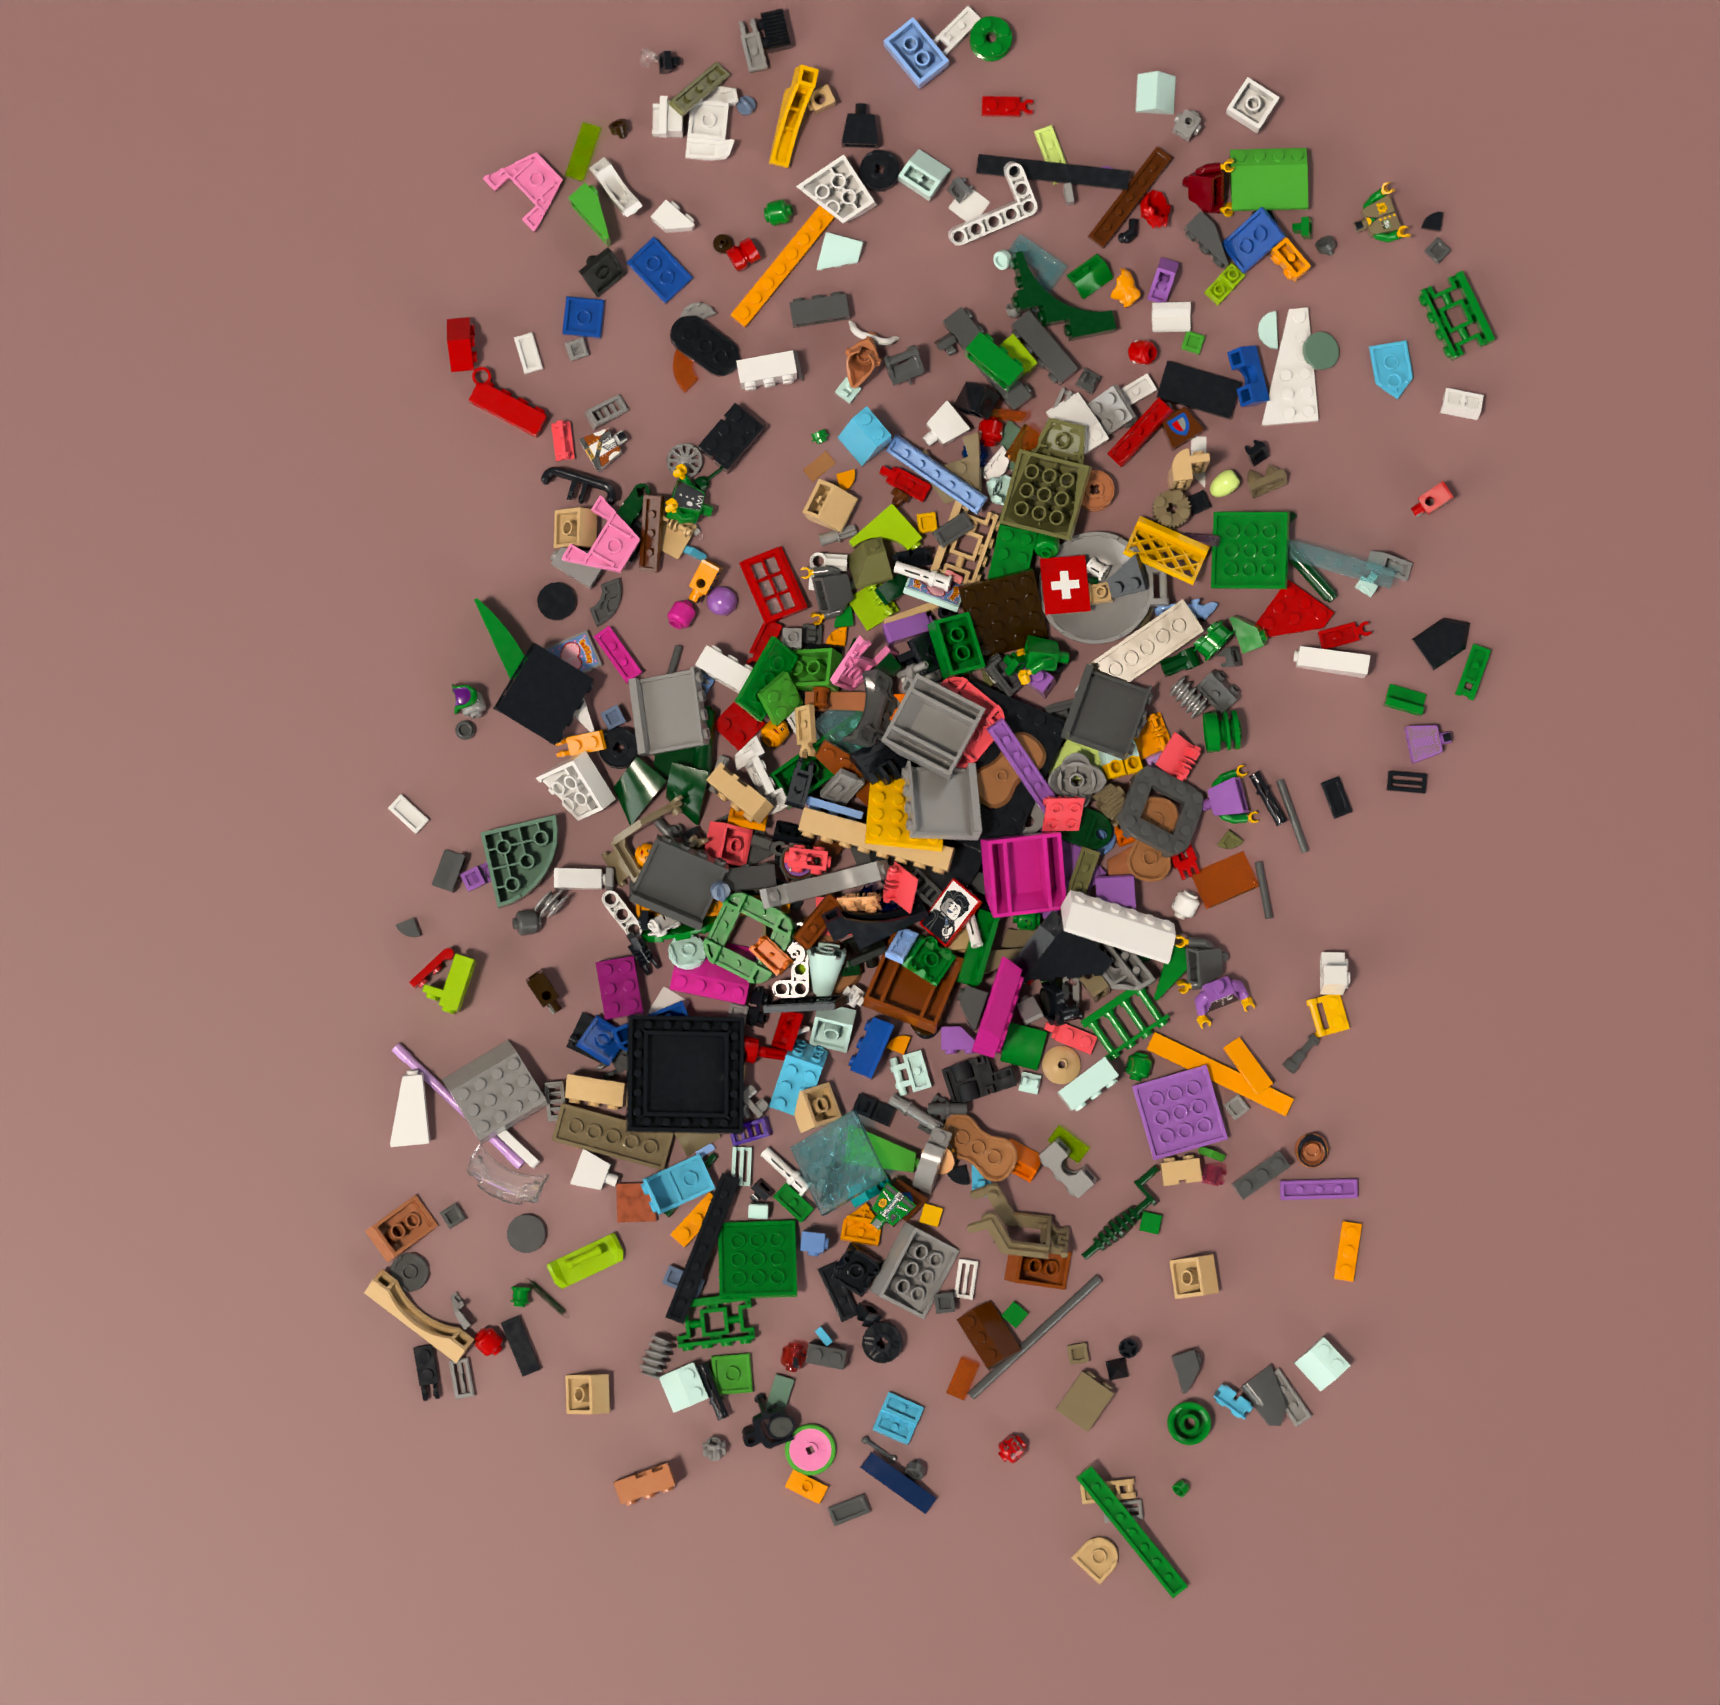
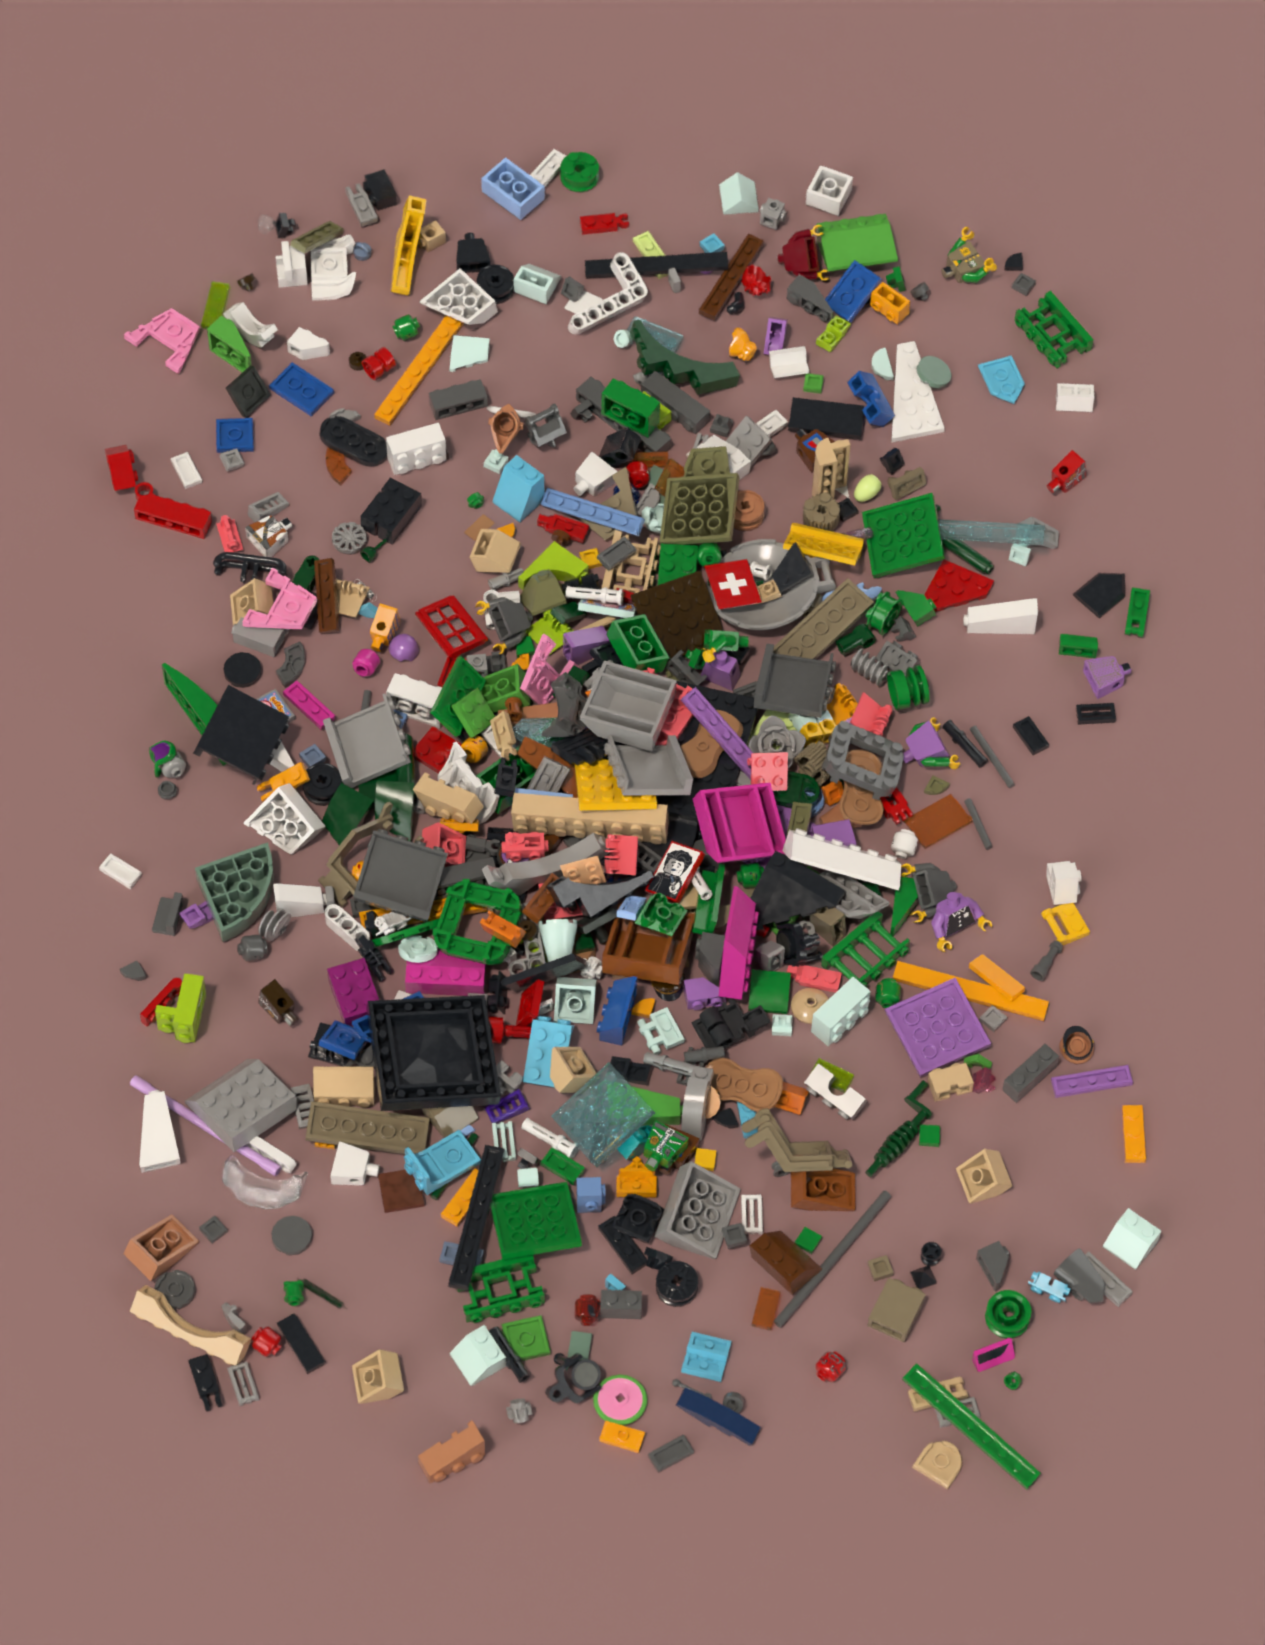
camera: 10 degrees left, 25 degrees down
(586, 1261) = (358, 1252): lime piece -> none
(655, 1357) = (443, 1329): light grey piece -> none
(686, 499) = (355, 565): torso -> none
(720, 891) = (442, 879): sand blue tile -> none
(1090, 276) = (707, 342): green panel -> none
(1116, 154) = (712, 244): none -> medium azure plate
(1140, 432) = (778, 456): red tile -> none
(1142, 352) = (767, 393): red head -> none
(1167, 1460) = (993, 1355): none -> dark pink slope
(1341, 635) = (1008, 594): red plate -> none

